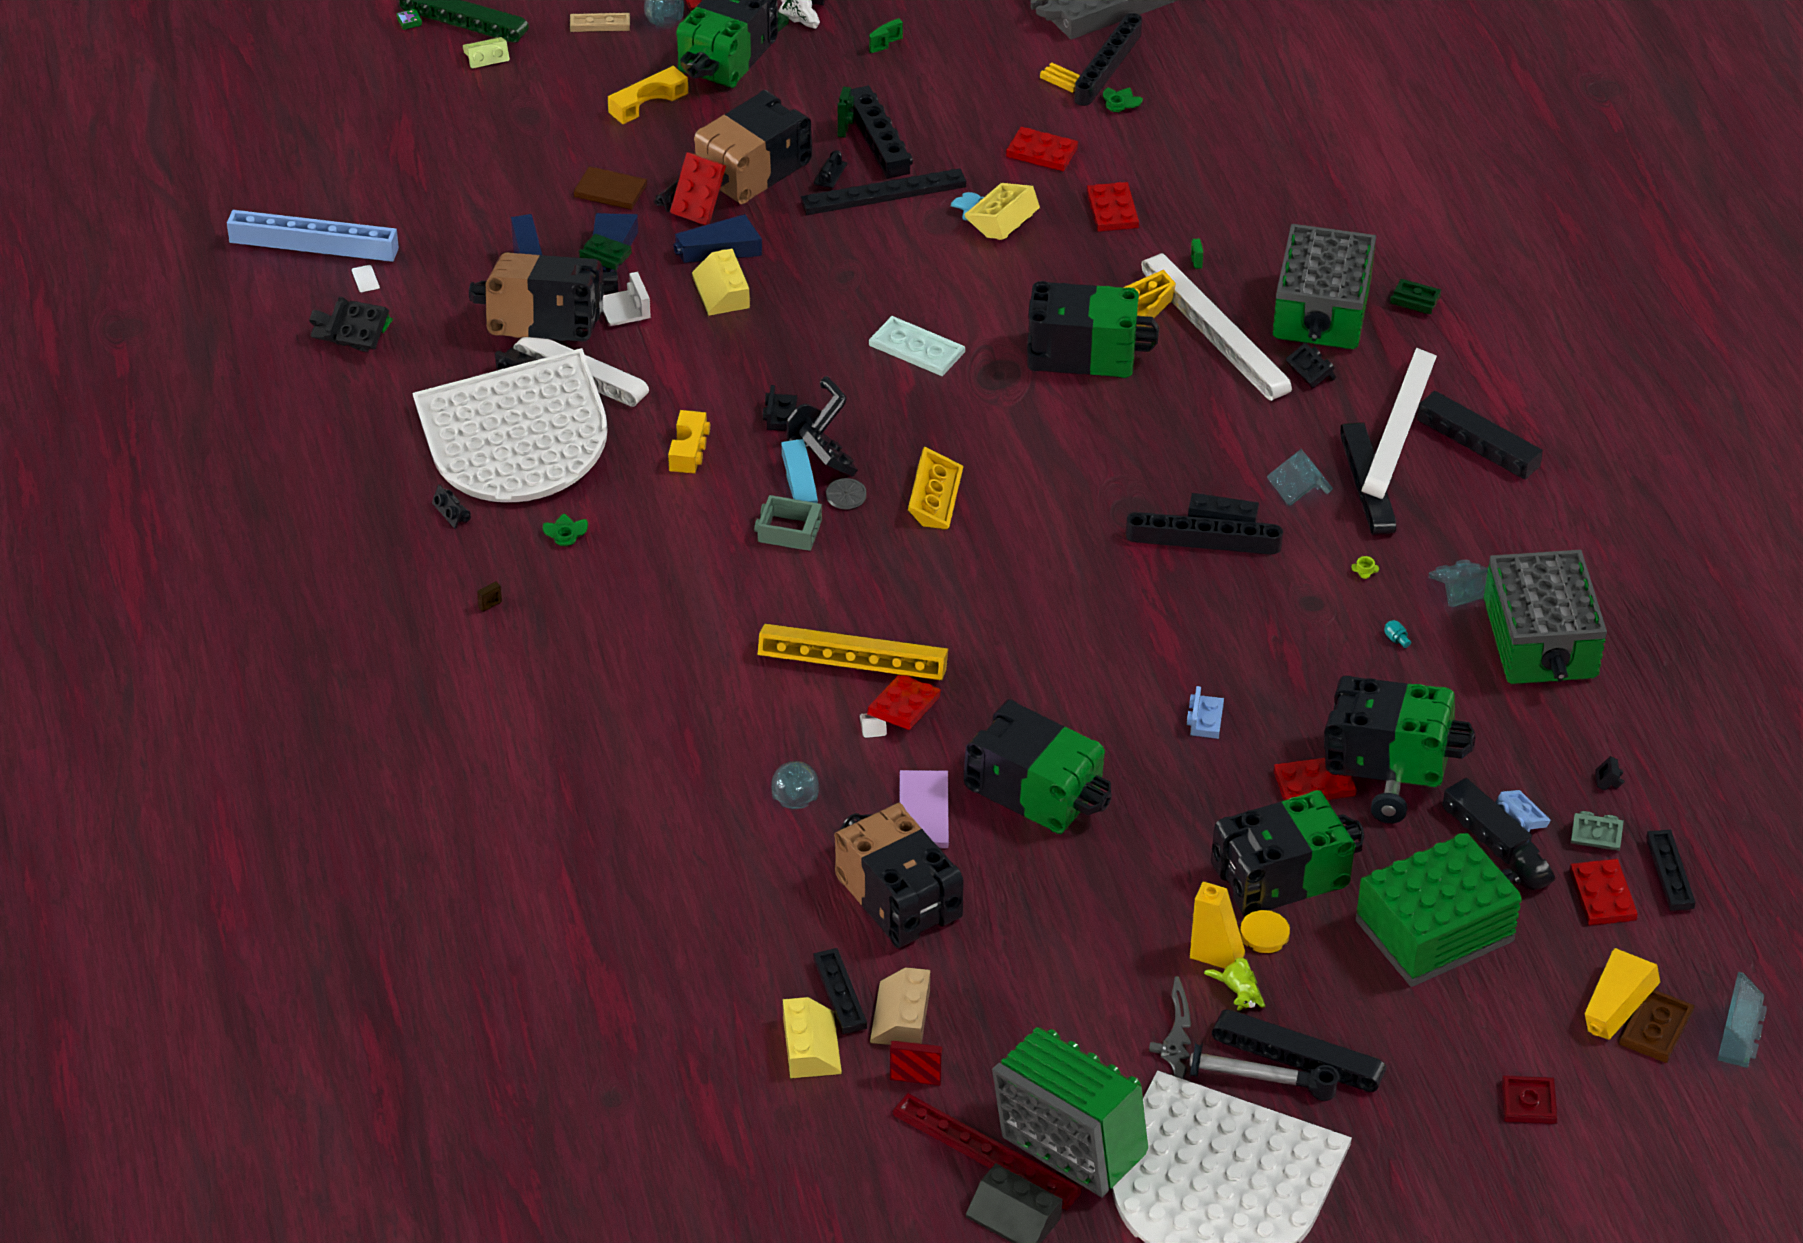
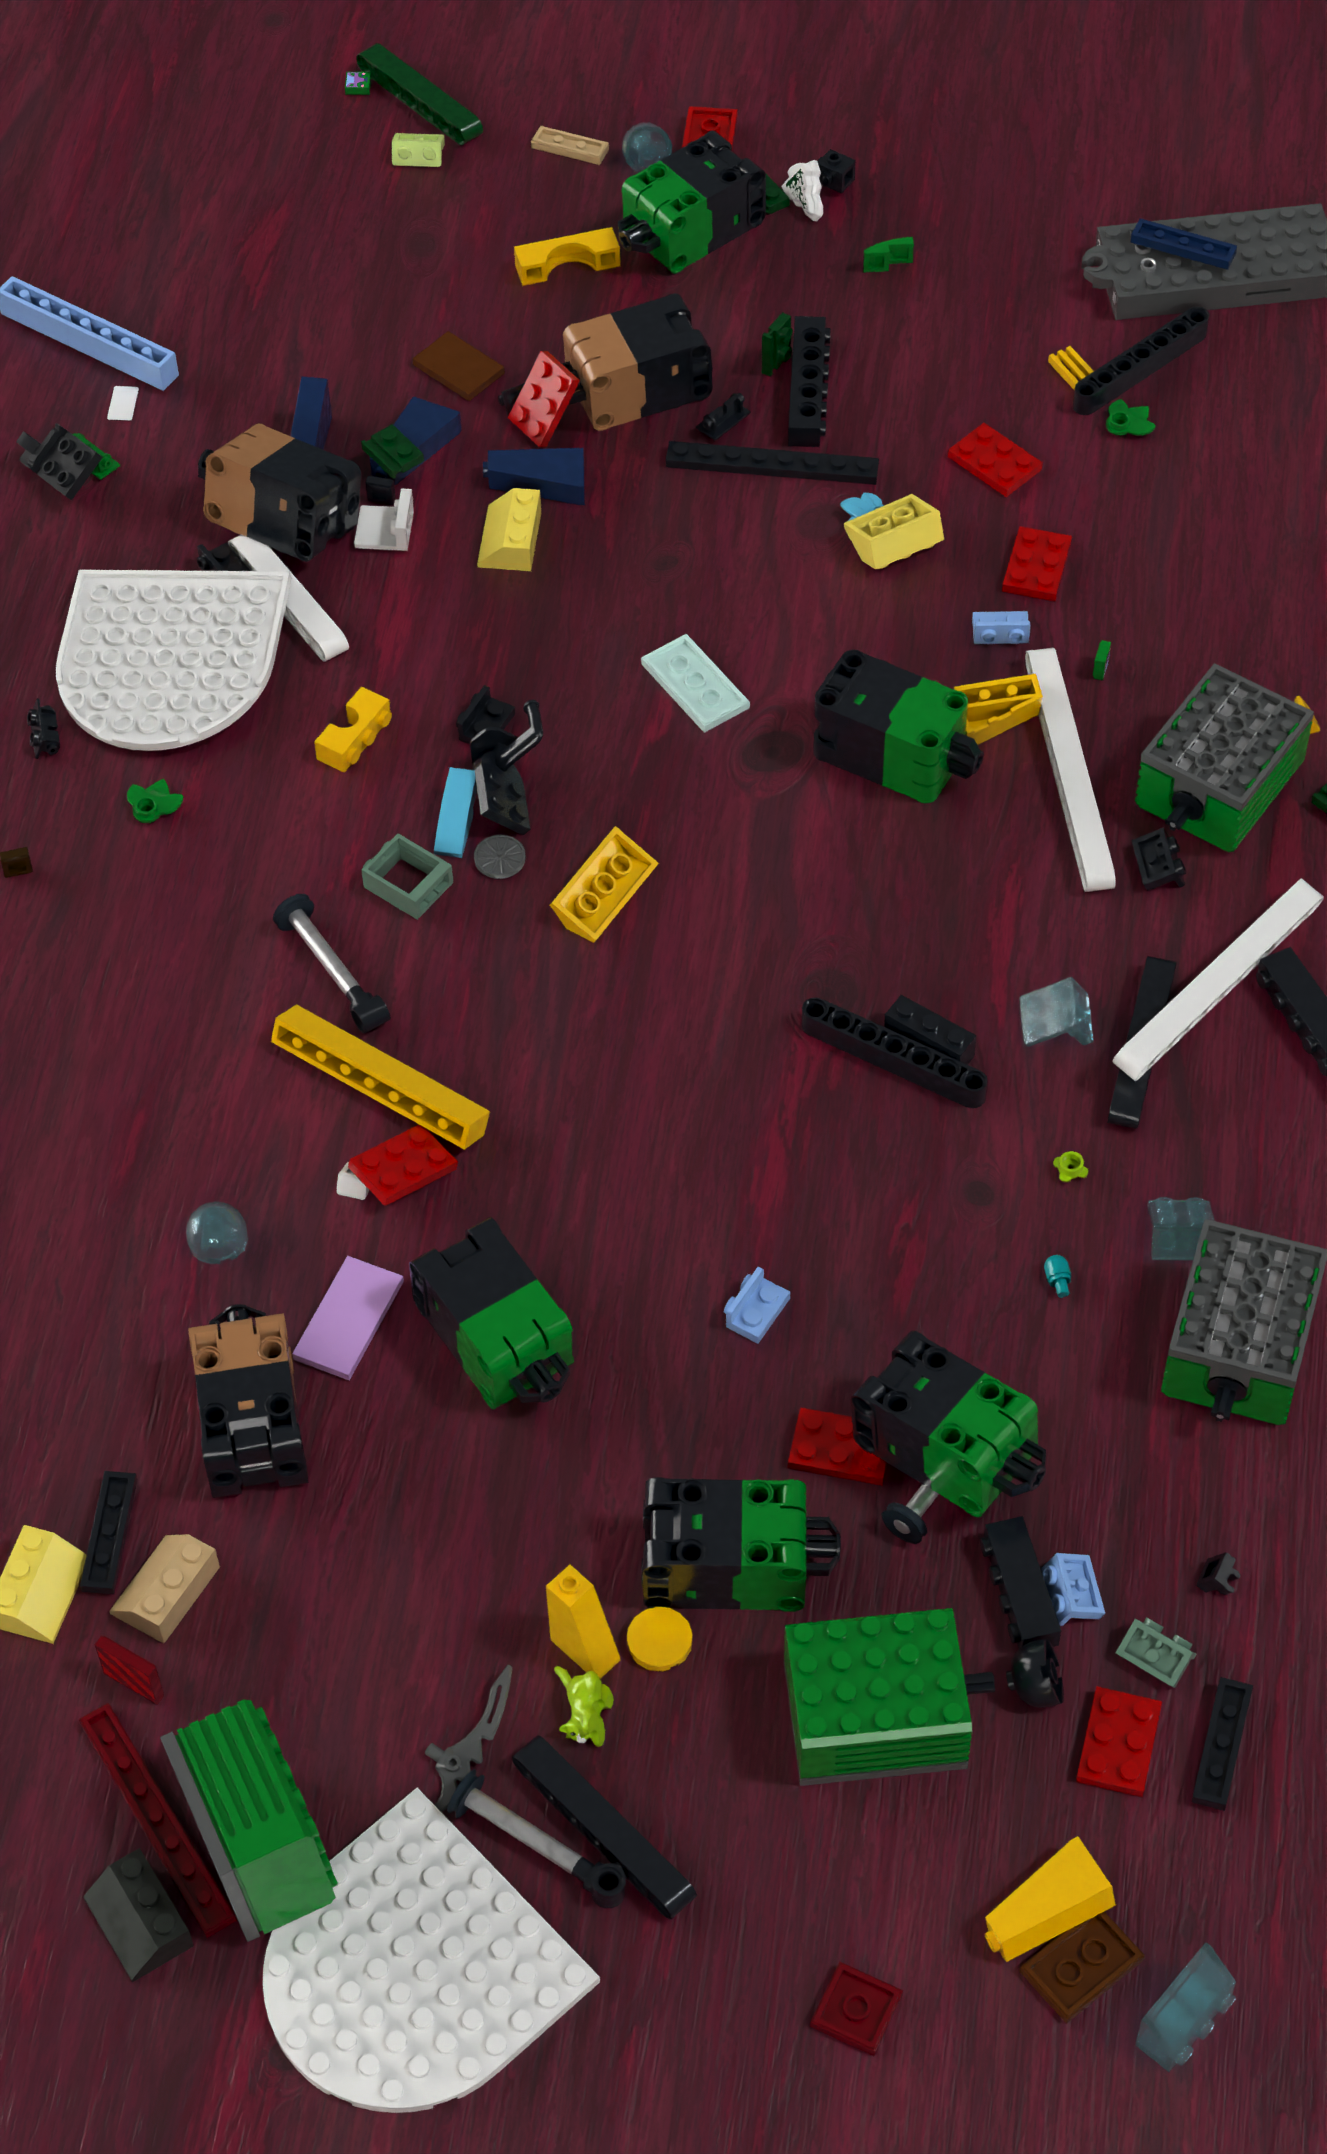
camera: 25 degrees right, 10 degrees up
(815, 615) = (365, 1009): none -> piece
(1113, 253) = (1001, 627): none -> light blue bracket

